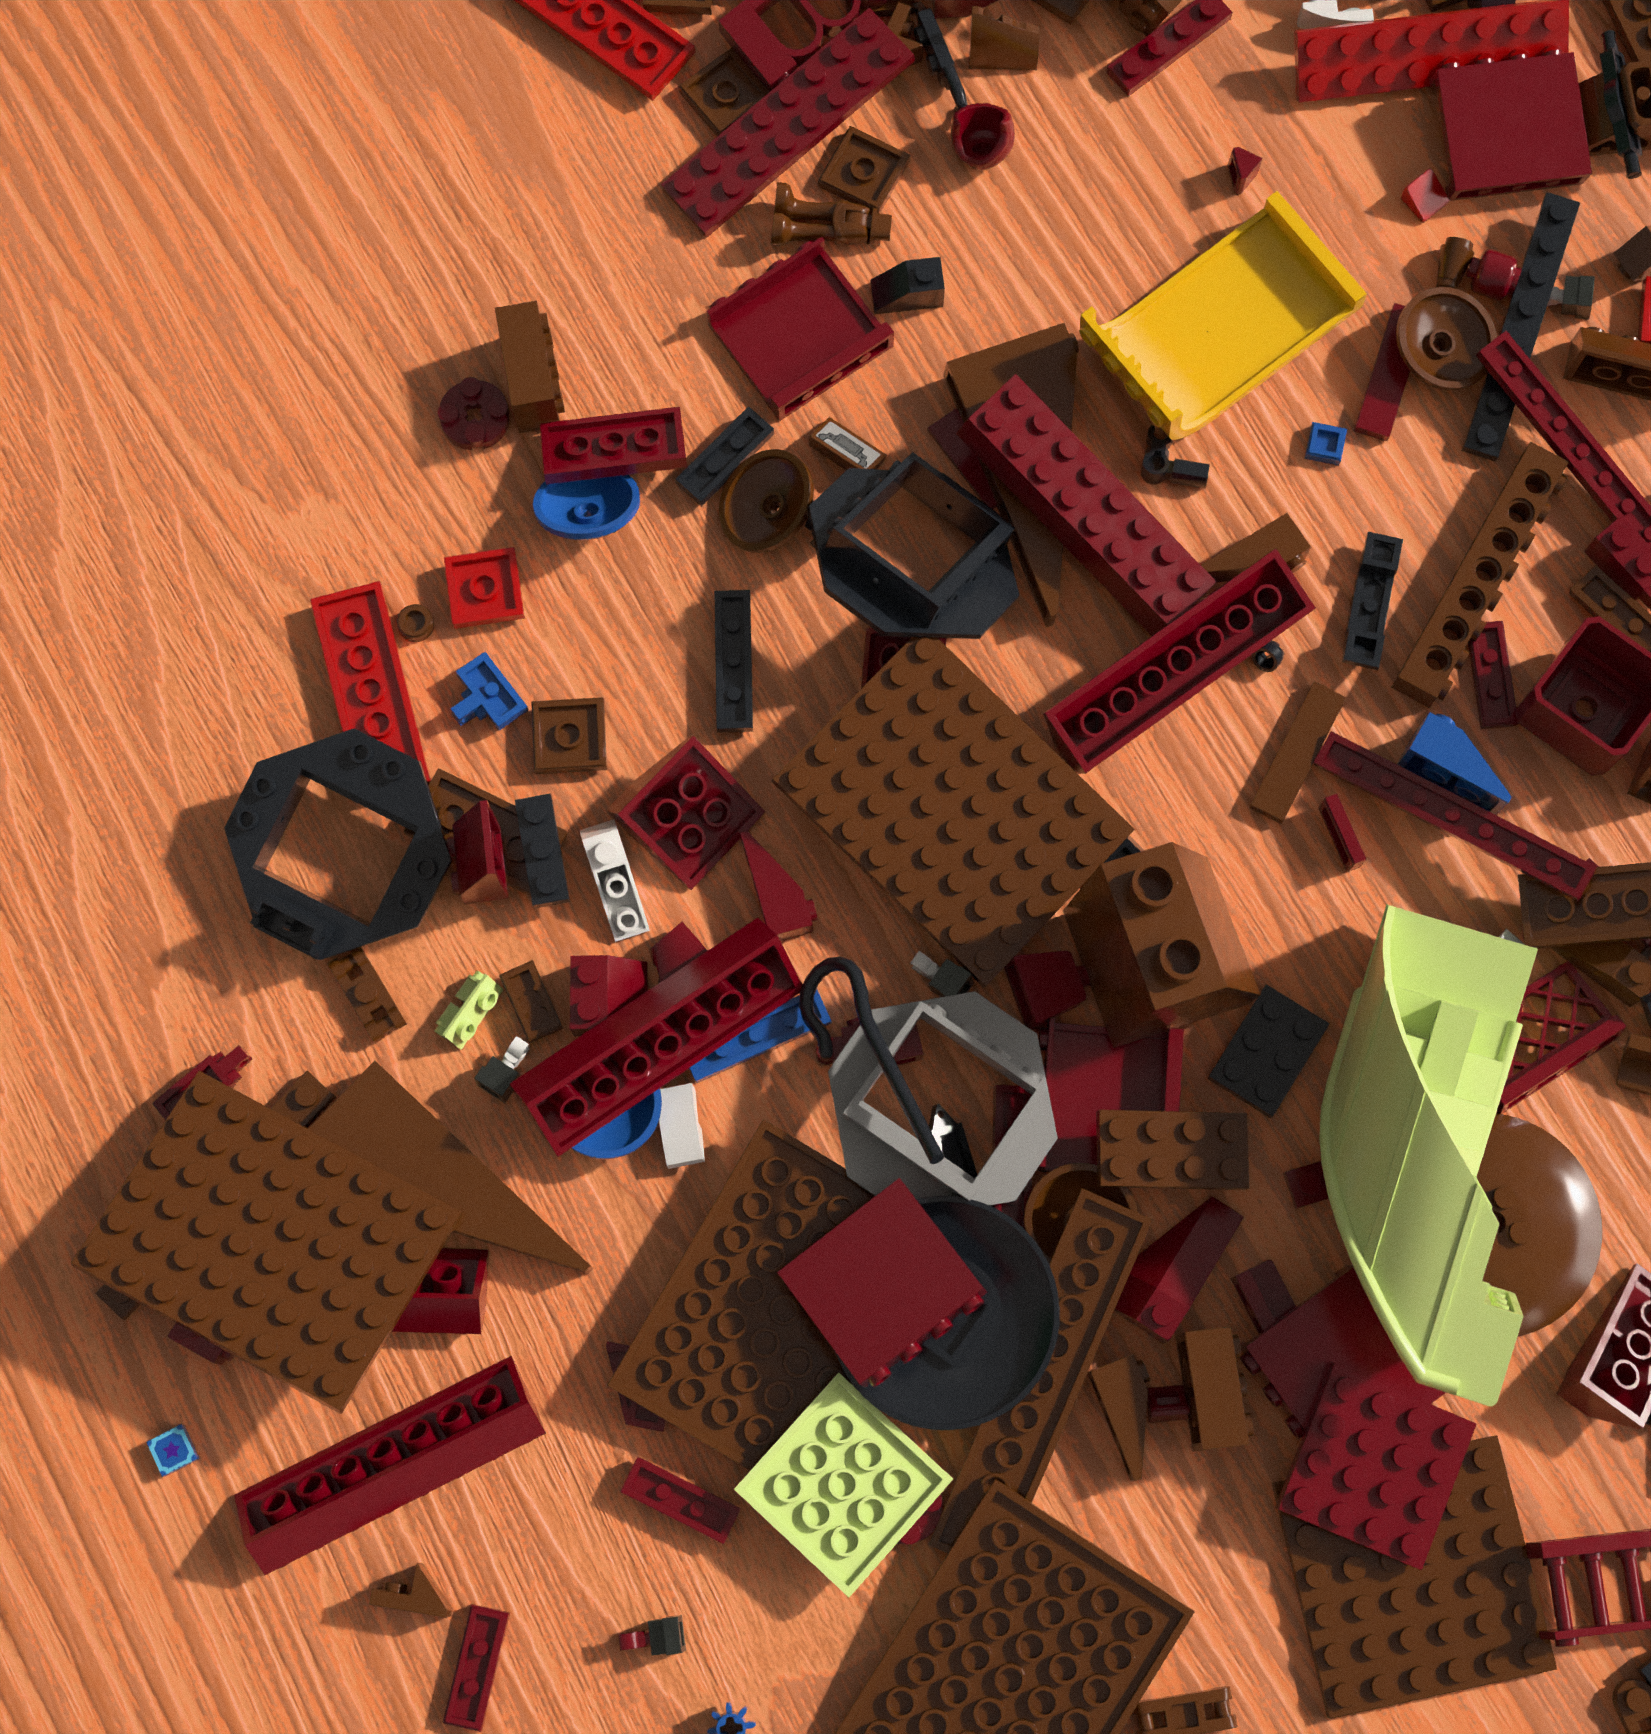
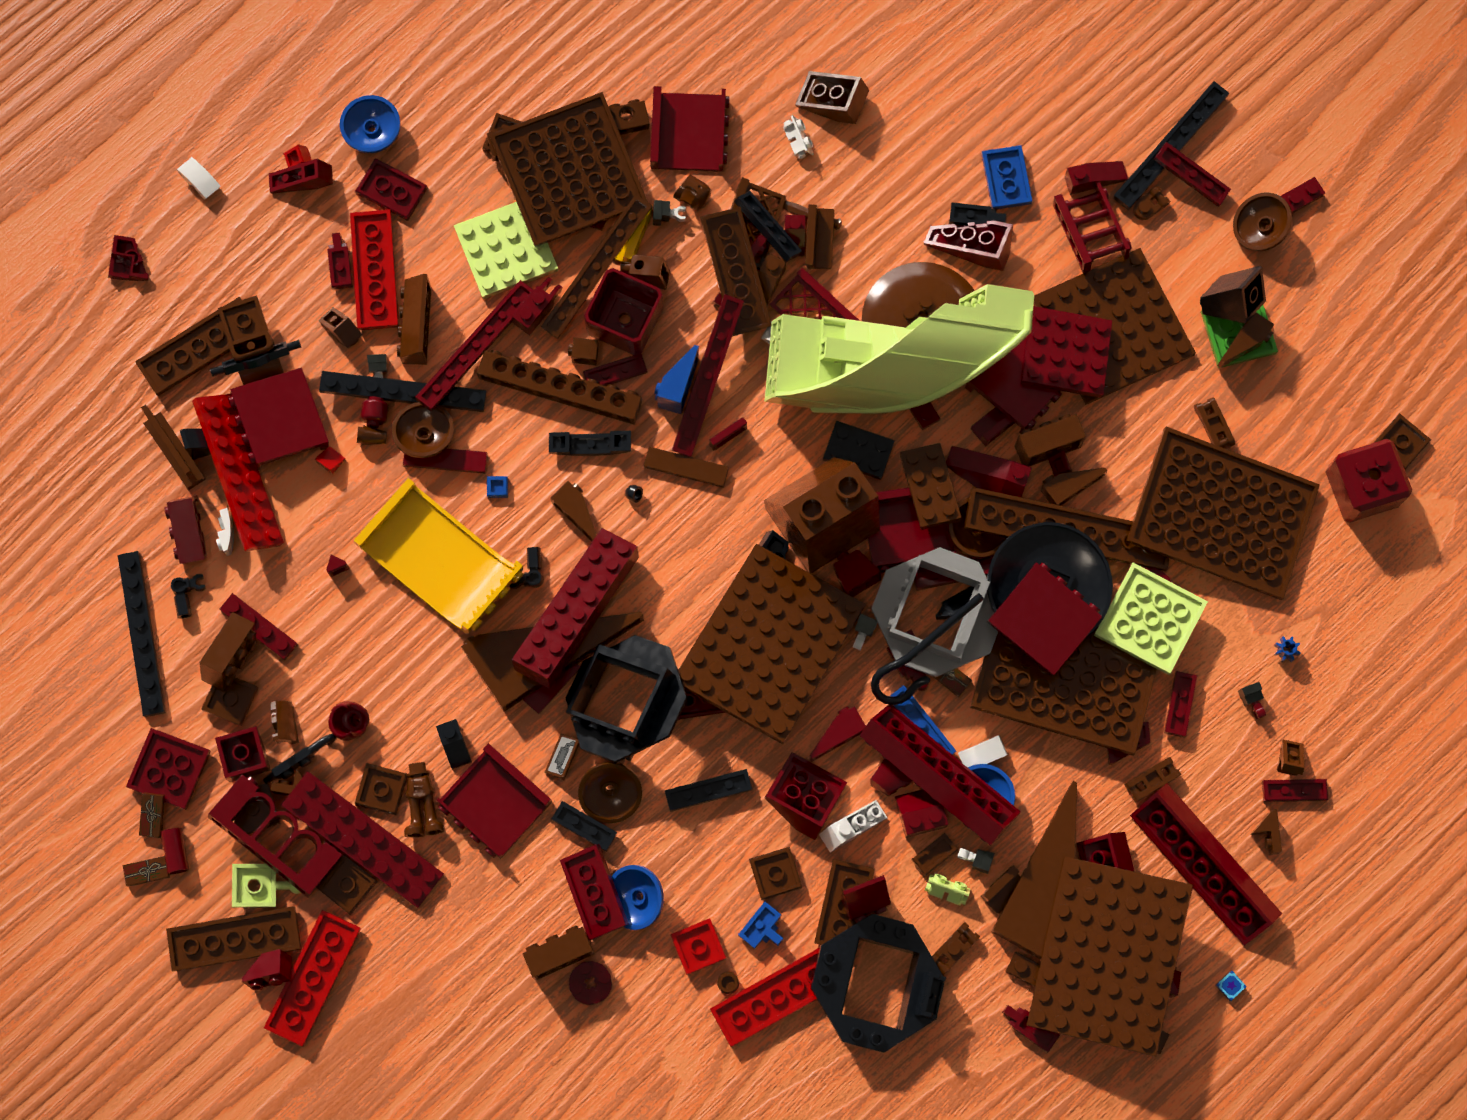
camera: 105 degrees left, 0 degrees up
(443, 1099) = (1001, 890): none -> reddish brown panel
(532, 1676) = (1291, 758): none -> reddish brown slope
(542, 851) = (849, 868): black plate -> none
(561, 1413) = (1152, 779): none -> reddish brown plate
(818, 1114) = (954, 681): none -> reddish brown tile
(1177, 662) = (656, 537): dark red slope -> none
(1537, 628) = (584, 351): none -> reddish brown brick

